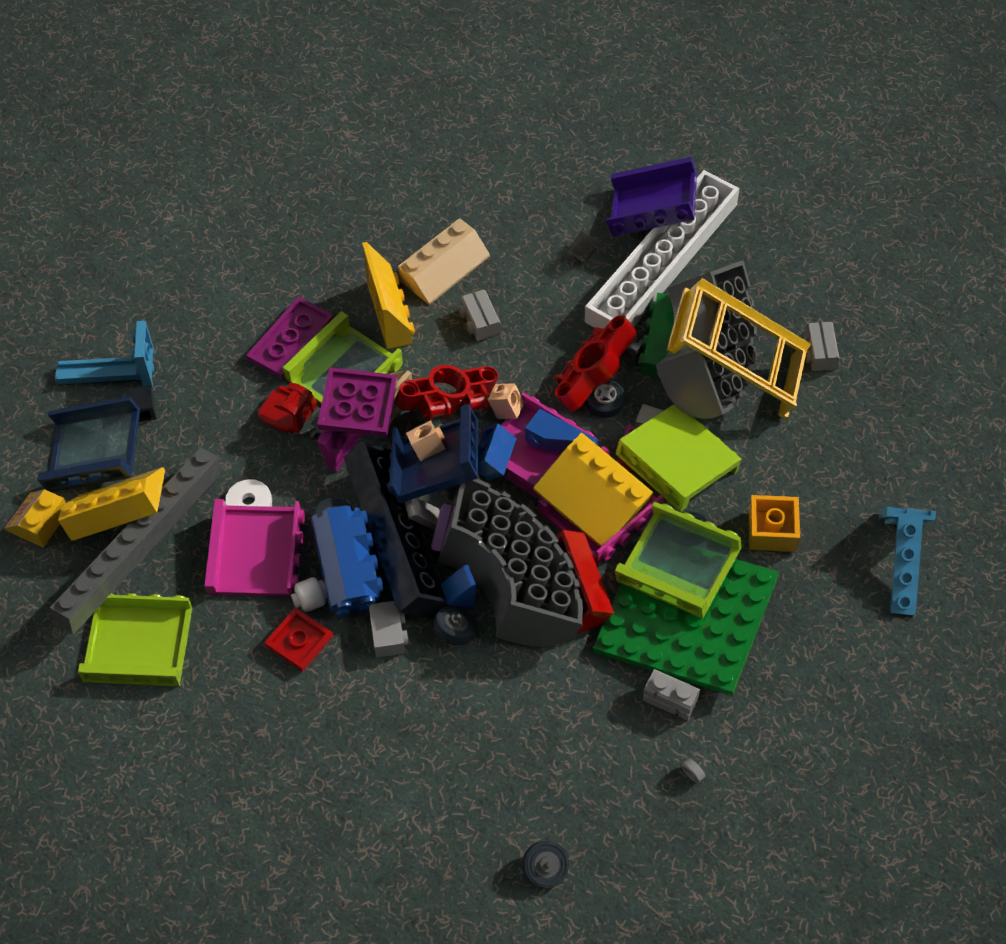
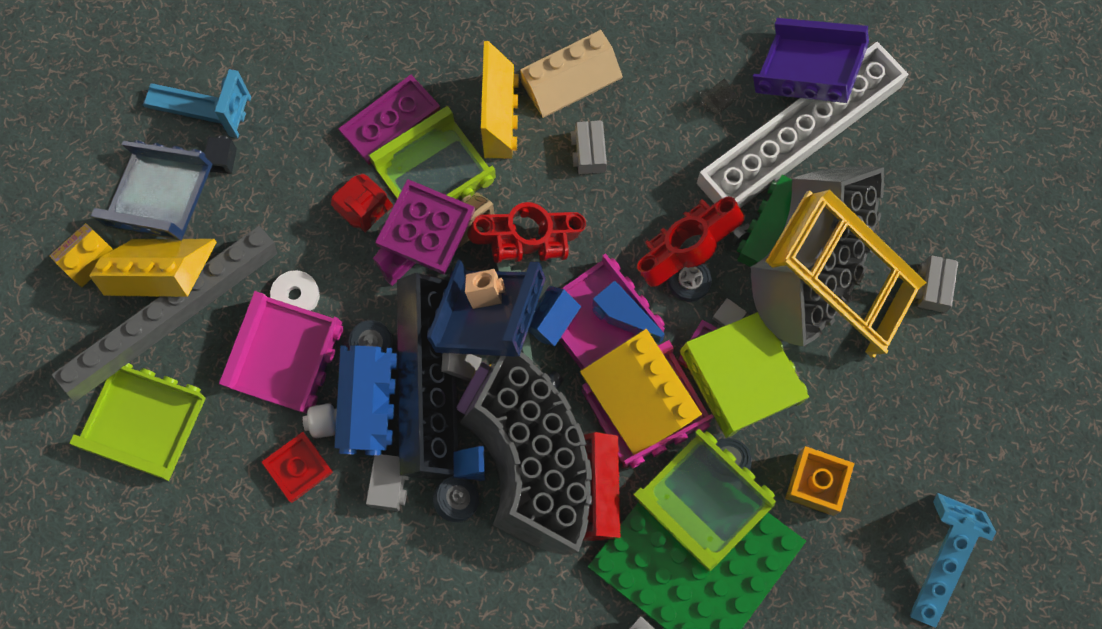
camera: 15 degrees right, 15 degrees up
(506, 401) = (584, 258): light nougat brick -> none

